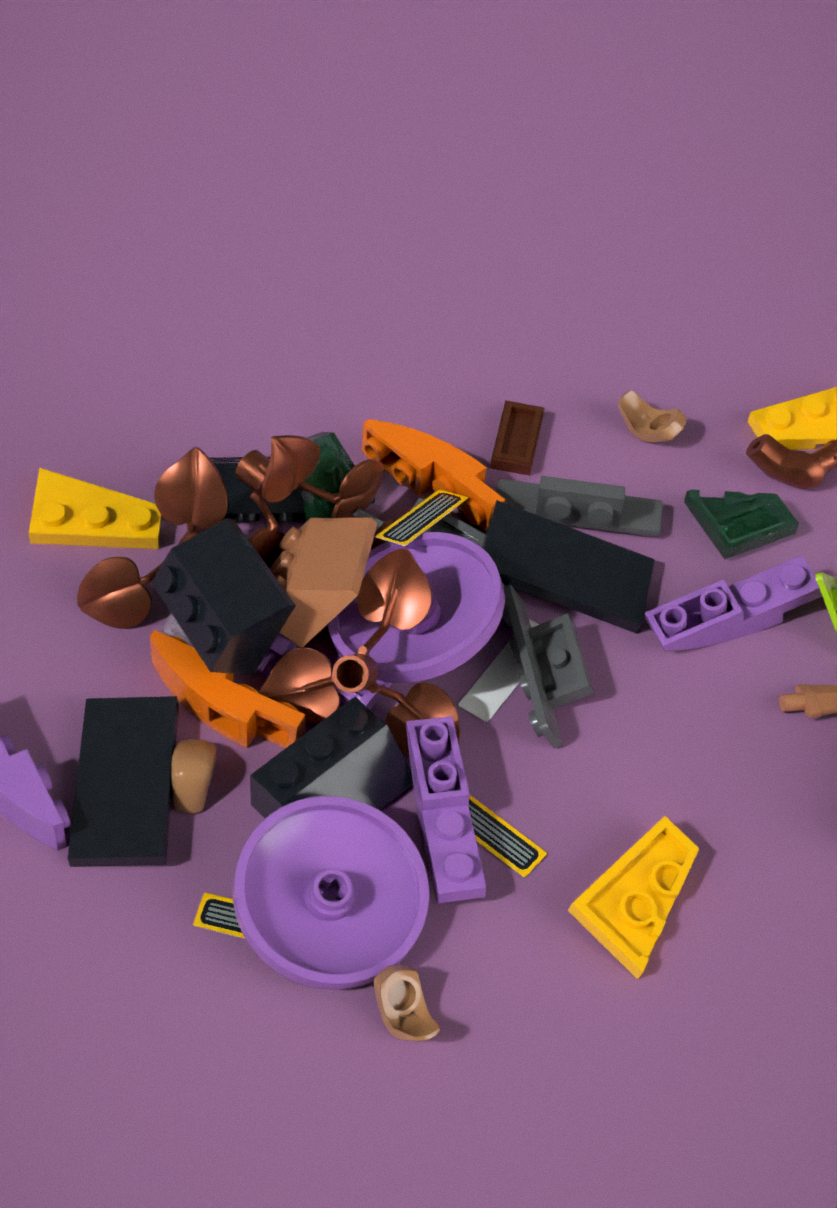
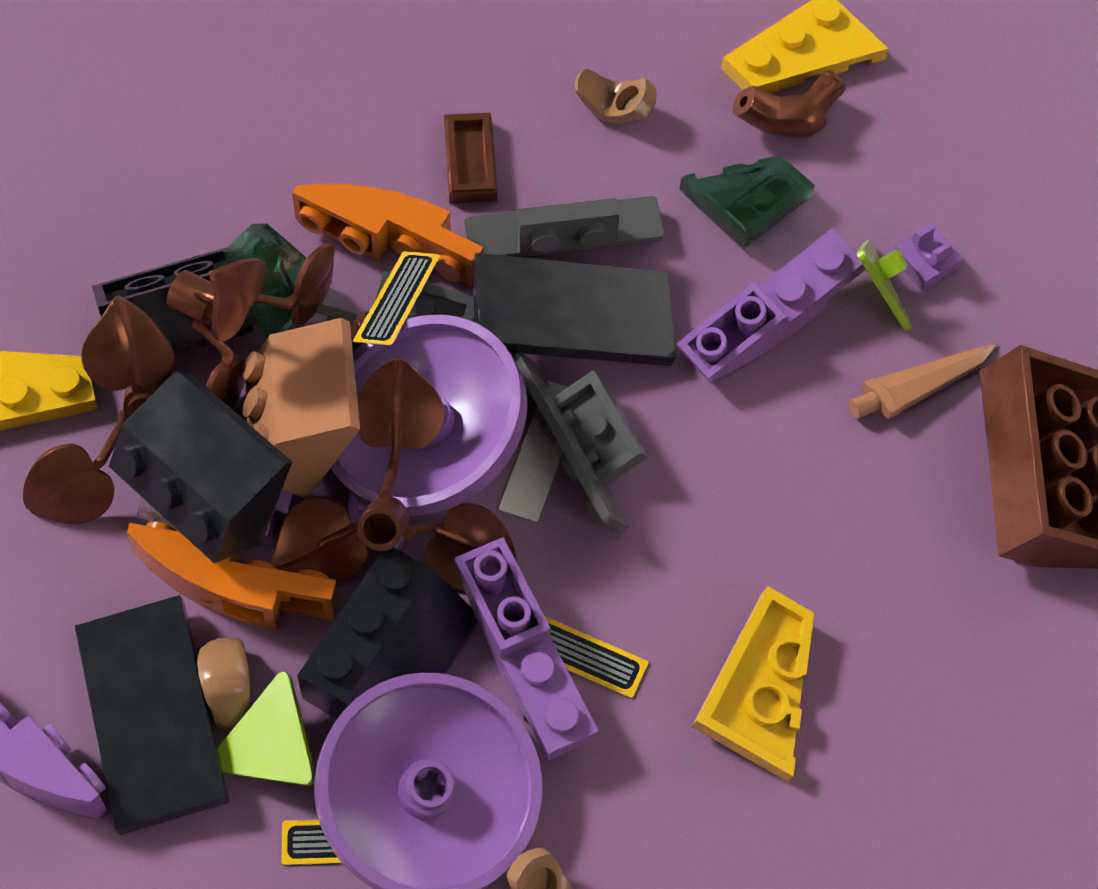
camera: 15 degrees left, 10 degrees up
(214, 822) = (270, 739): none -> lime piece

